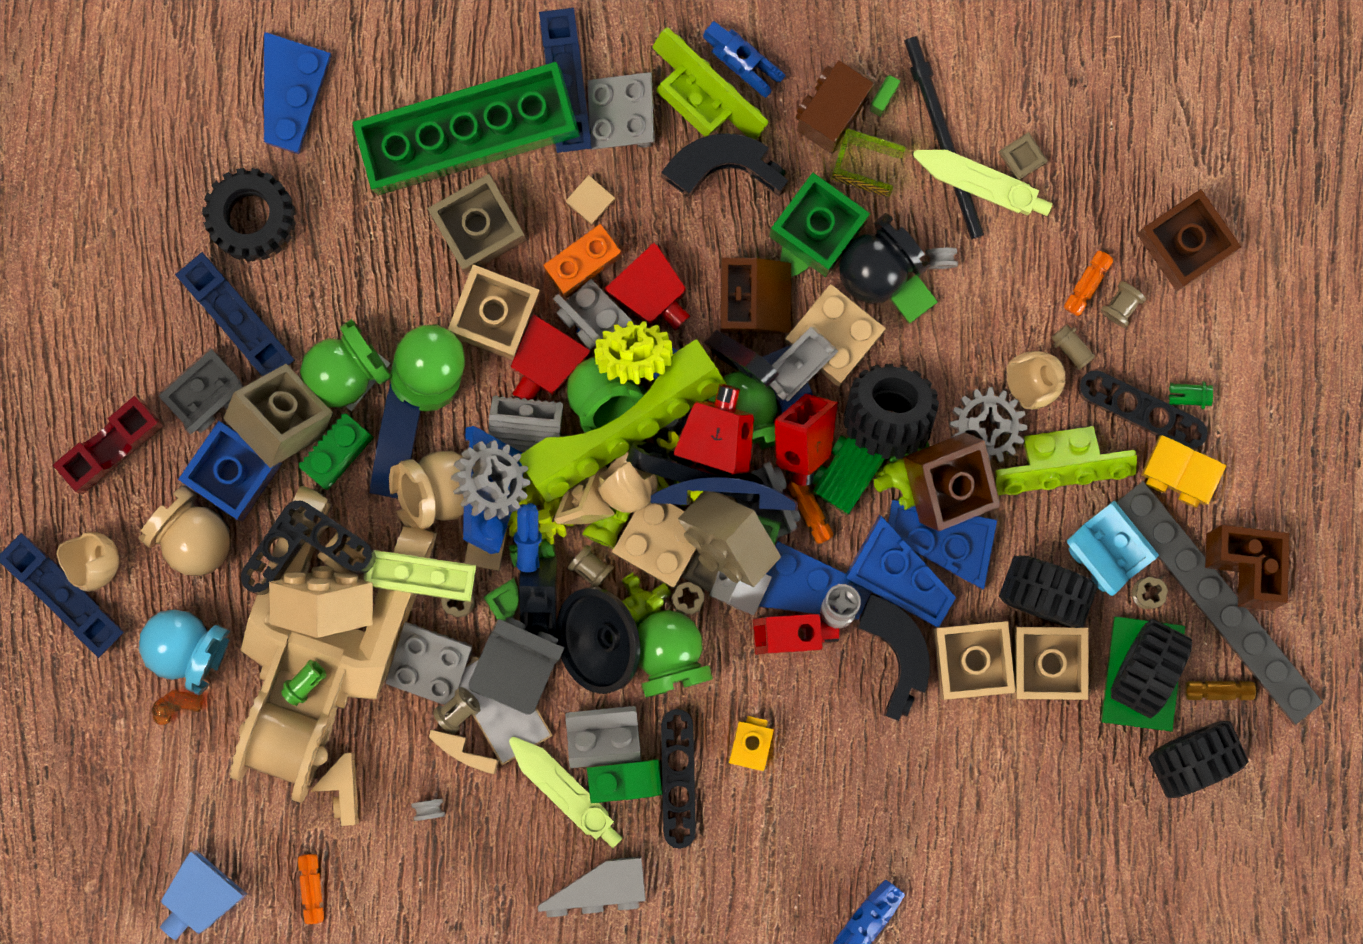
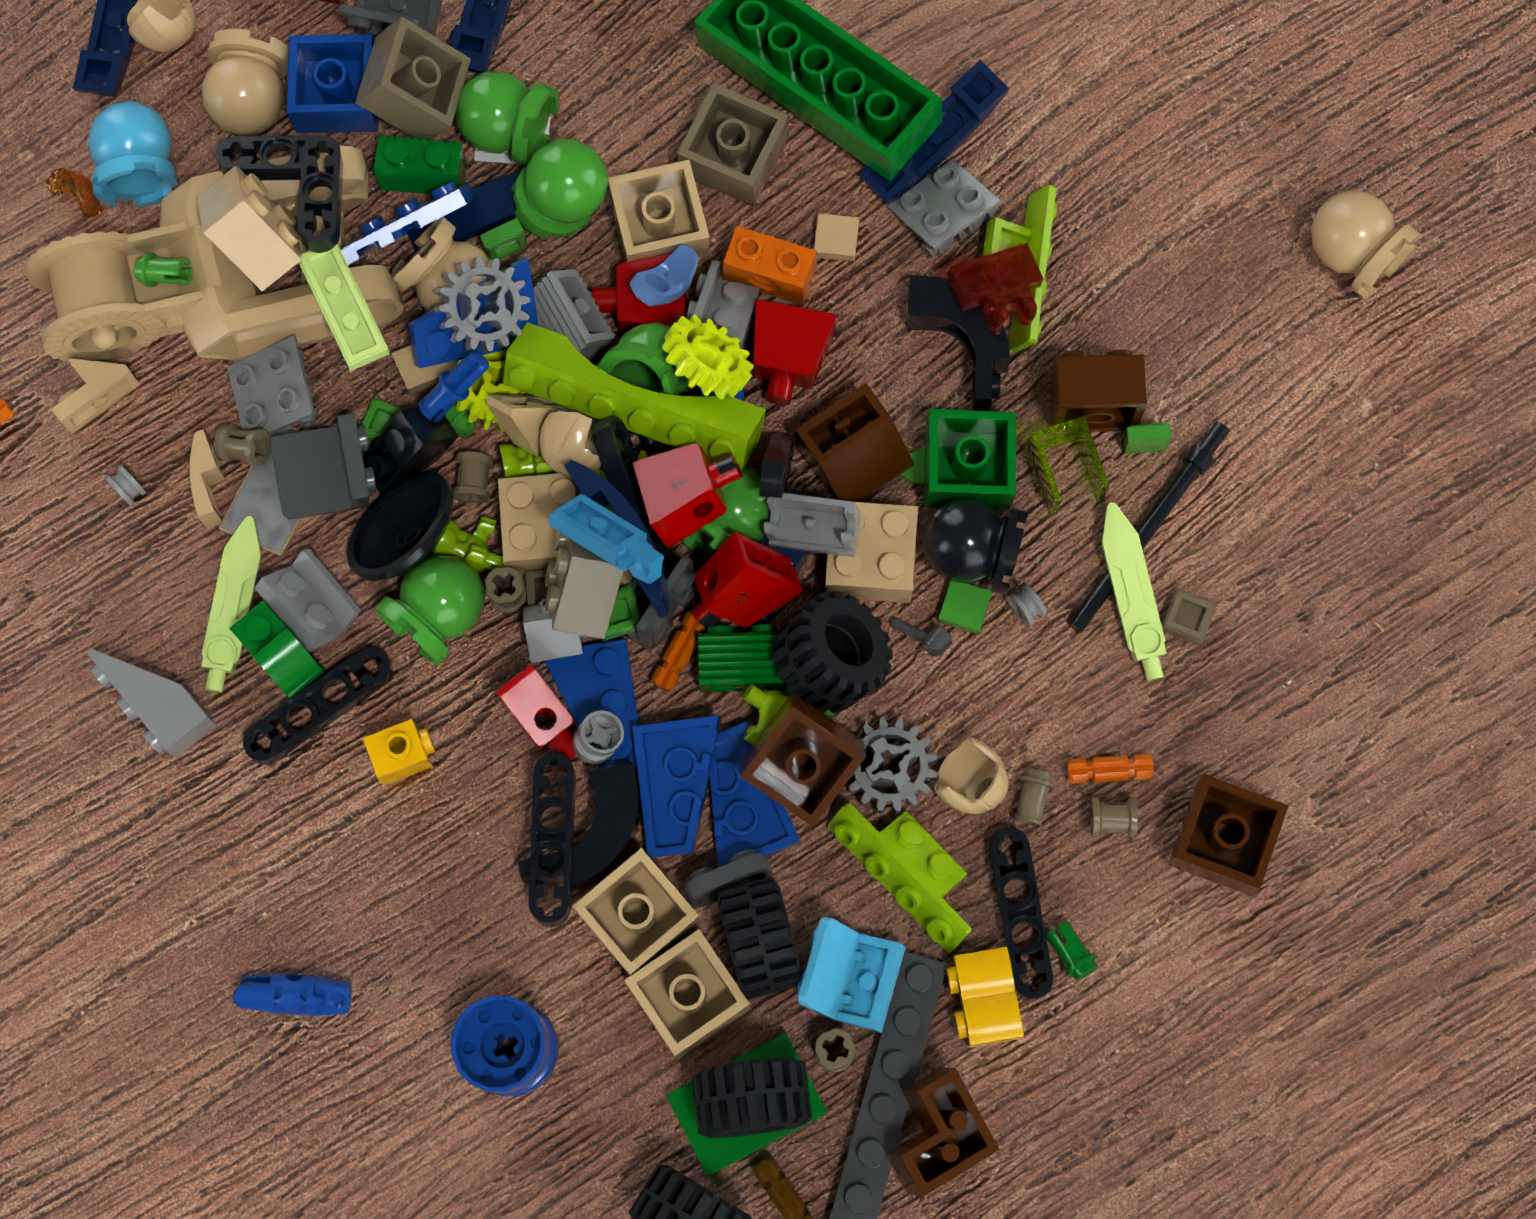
camera: 60 degrees right, 10 degrees down
(374, 501) = (409, 215): none -> wing
(432, 431) = (504, 240): none -> bright green tile
(454, 611) = (353, 387): dark tan bush -> none
(551, 340) = (667, 280): none -> medium blue hair
(713, 118) = (999, 284): none -> clear red plate
(727, 508) = (608, 537): none -> dark azure hinge
(731, 45) = (1081, 280): blue hinge -> none
(890, 680) = (548, 839): none -> black beam
(922, 336) = (934, 642): none -> dark grey hand
(988, 600) = (707, 882): none -> dark grey plate
(1019, 818) = (480, 1041): none -> blue wheel

